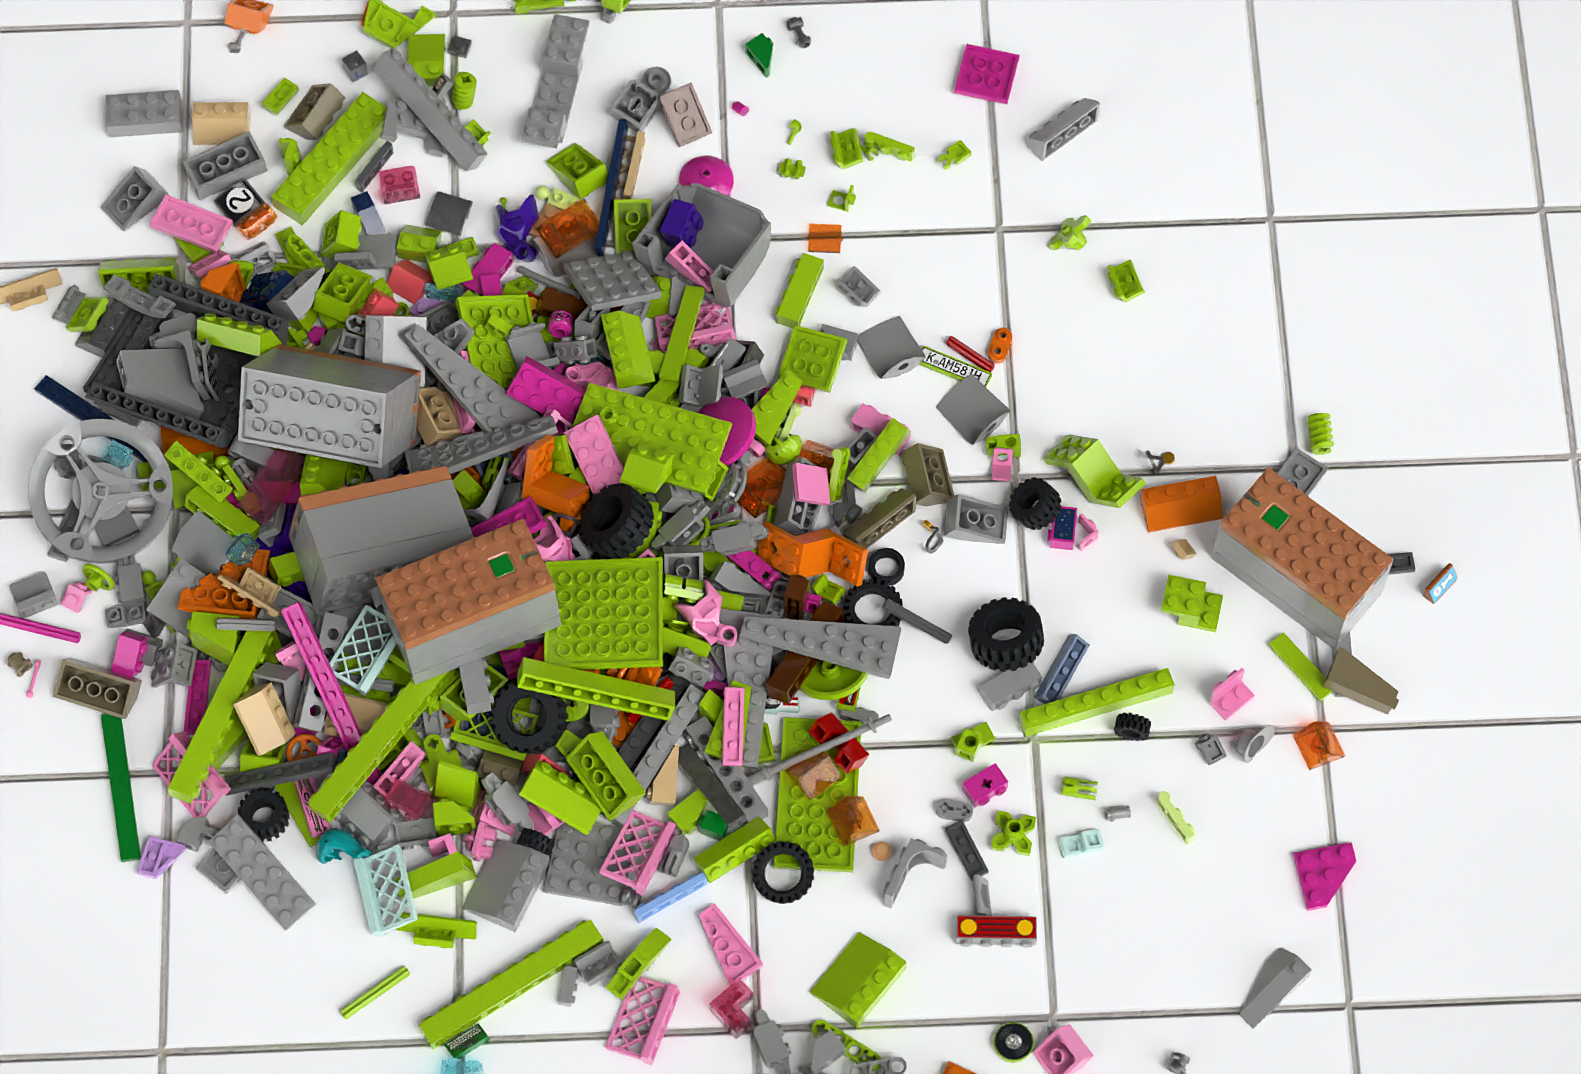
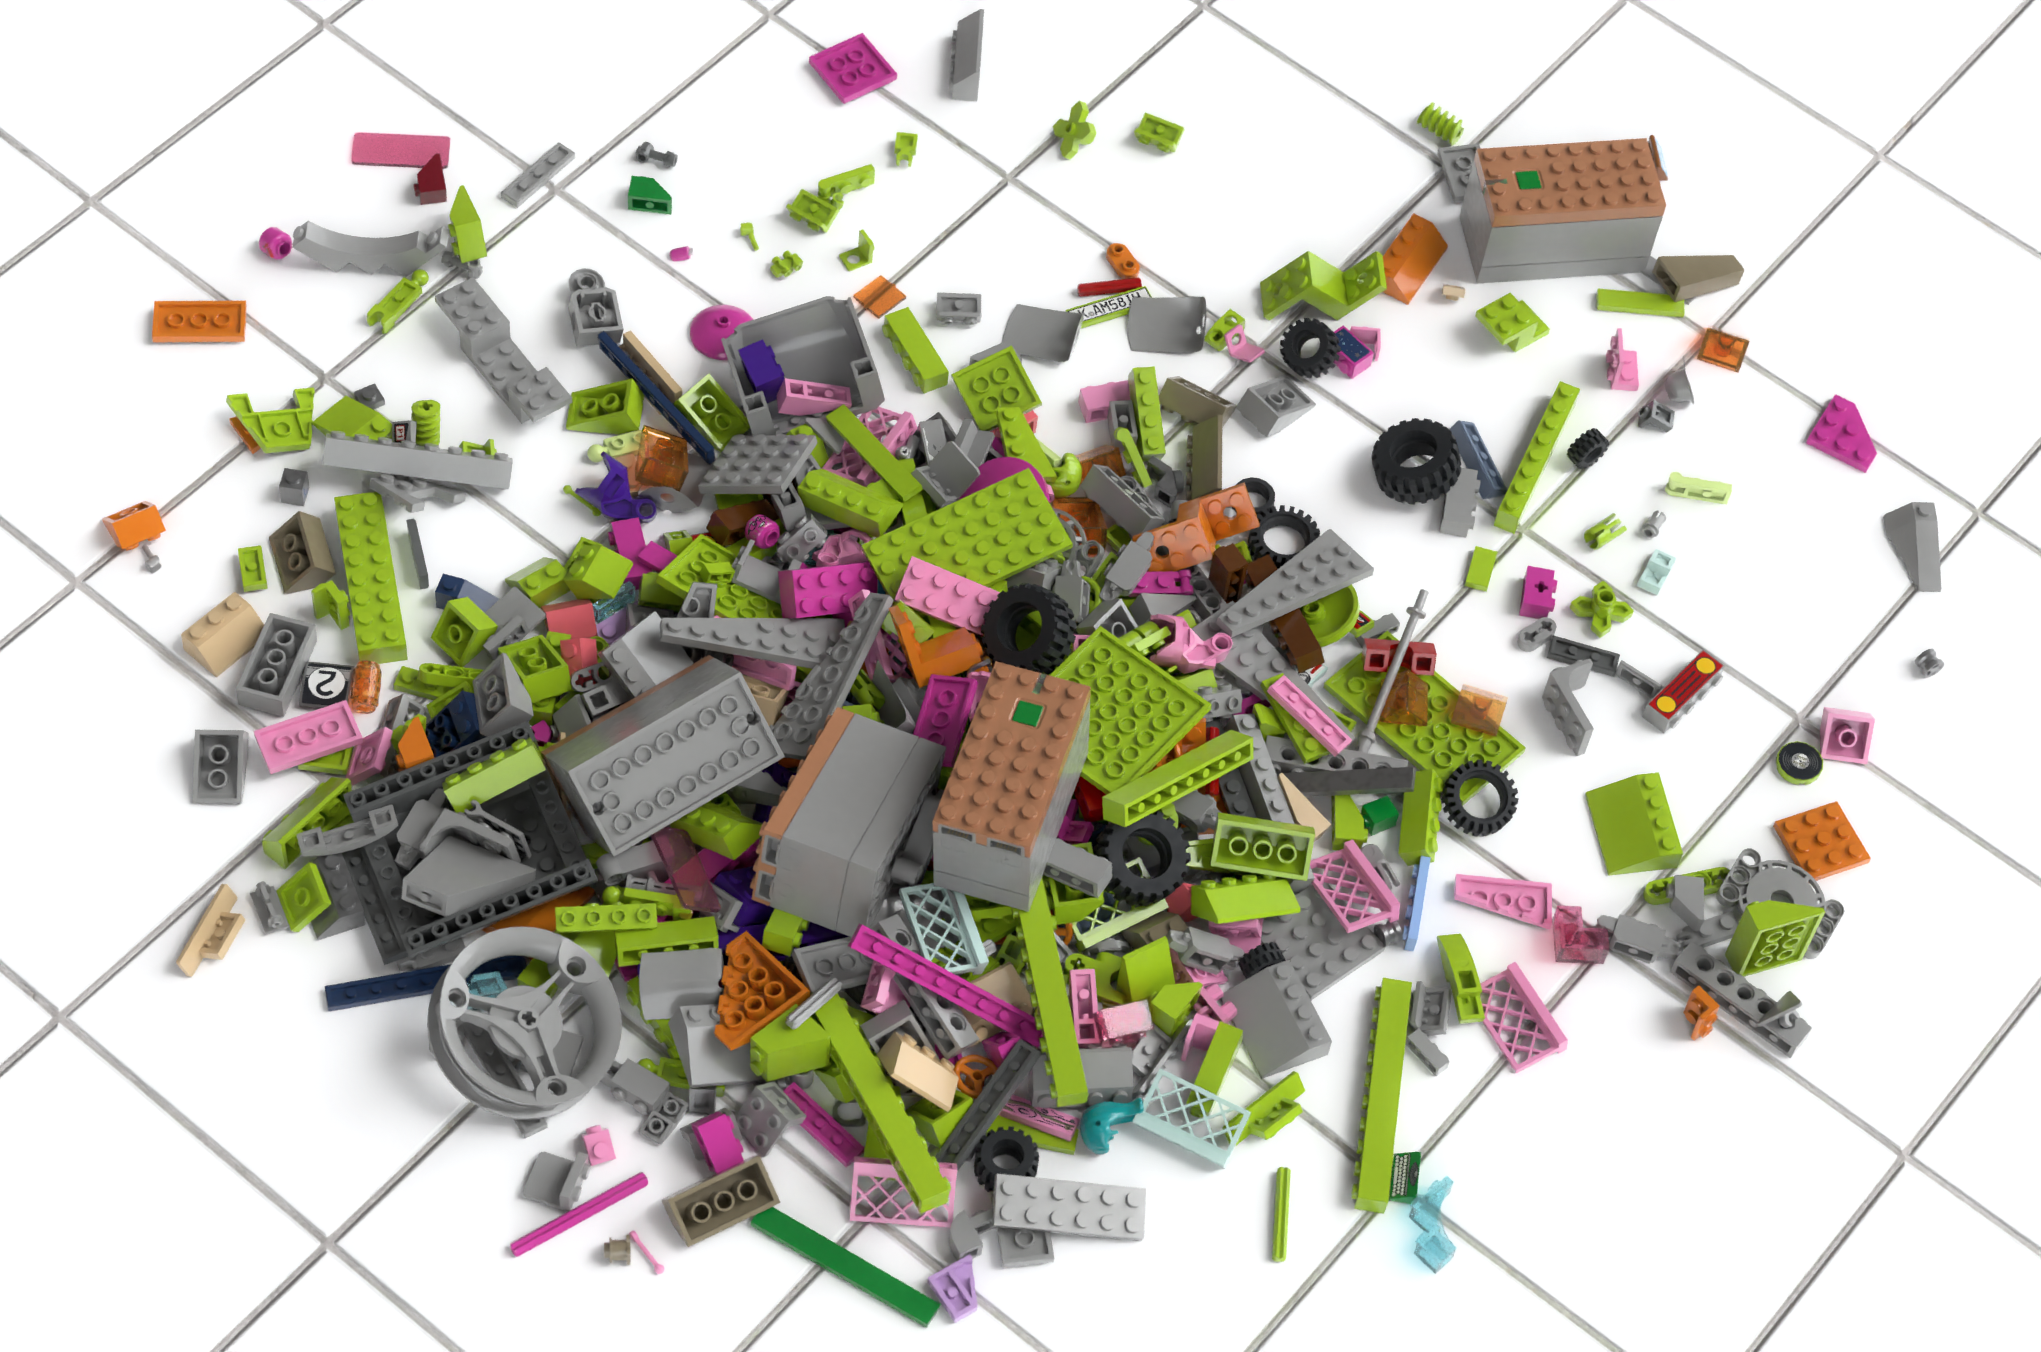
camera: 55 degrees left, 10 degrees down
(95, 579) = (604, 1109): lime piece -> none
(144, 113) = (138, 686): light grey brick -> none
(242, 549) = (730, 945): clear light blue brick -> none
(257, 588) = (786, 962): tan bracket -> none
(399, 184) = (460, 550): clear pink bracket -> none
(448, 213) = (533, 537): flat silver slope -> none
(549, 282) = (690, 519): light grey bar -> none
(608, 410) = (919, 547): lime plate -> none
(647, 468) = (1009, 559): lime slope -> none
(685, 114) = (647, 289): tile -> none
(811, 484) = (1127, 479): bright pink tile -> none
(882, 851) = (1525, 715): light nougat plate -> none
(917, 621) = (1333, 515): dark grey axle -> none
(935, 530) = (1244, 441): flat silver piece -> none
(969, 752) = (1491, 578): lime brick -> none
(1168, 458) = (1353, 238): flat silver piece -> none

